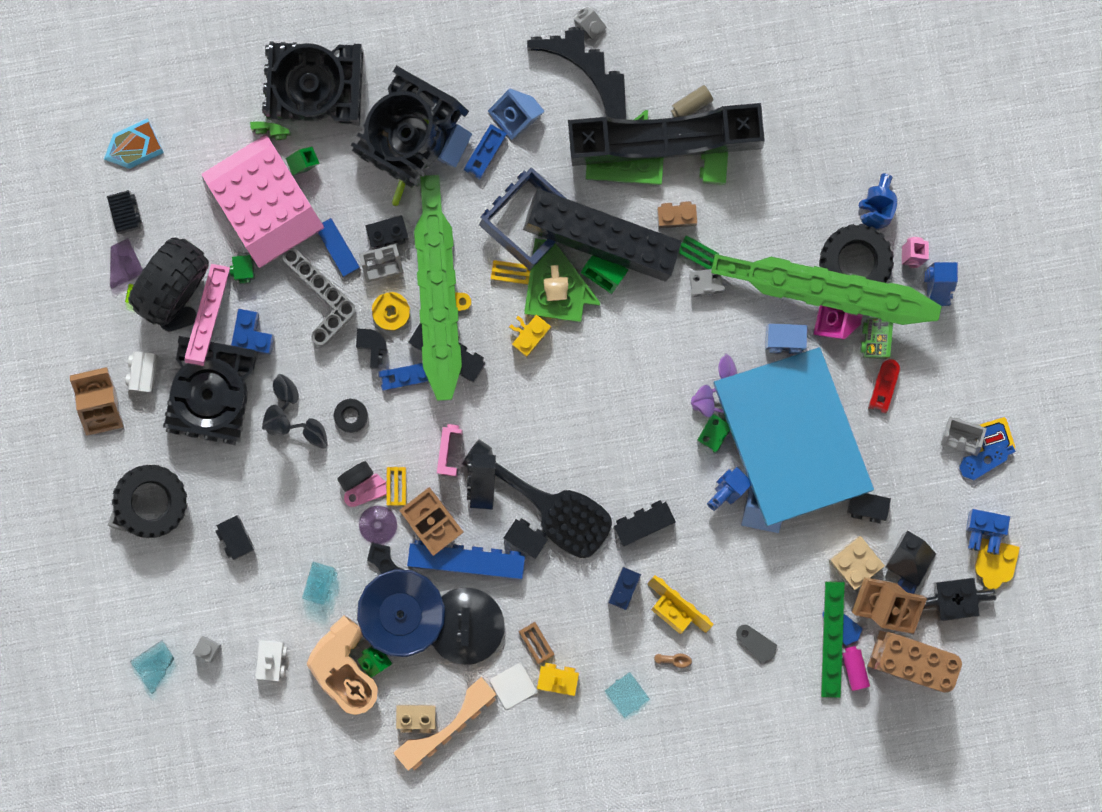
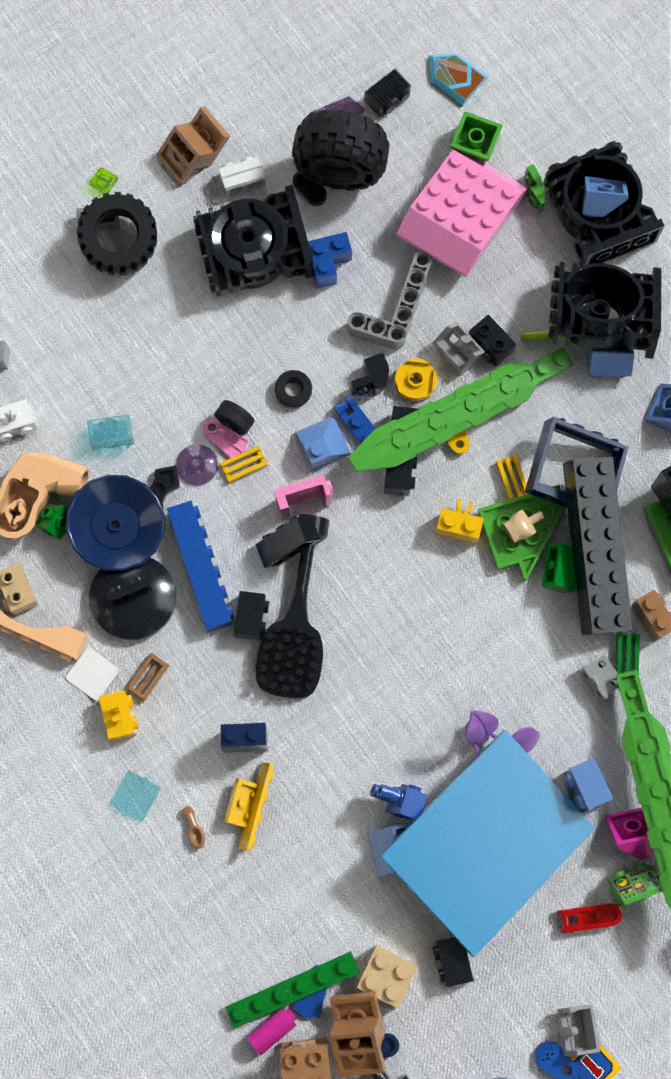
camera: 65 degrees right, 10 degrees down
(89, 490) = (103, 180): none -> clear neon green tile
(204, 158) = (476, 136): none -> bright green slope
(207, 314) = (325, 203): bright pink plate -> none
(235, 538) = (119, 332): black brick -> none
(242, 269) = (387, 222): green brick -> none
(277, 423) = (251, 307): black plant -> none
(302, 160) = (520, 229): green brick -> none
(308, 79) = (602, 196): none -> medium blue slope
(338, 248) = (453, 302): blue tile -> none
(408, 412) = (322, 443): none -> medium blue slope
(431, 521) = (223, 511): medium nougat bracket -> none
(485, 151) = (620, 398): blue plate -> none
(644, 523) = (322, 729): black brick -> none
(716, 433) = (451, 761): green piece -> none
(756, 643) = (251, 908): dark grey piece -> none
(911, 558) = (419, 1035): black slope -> none

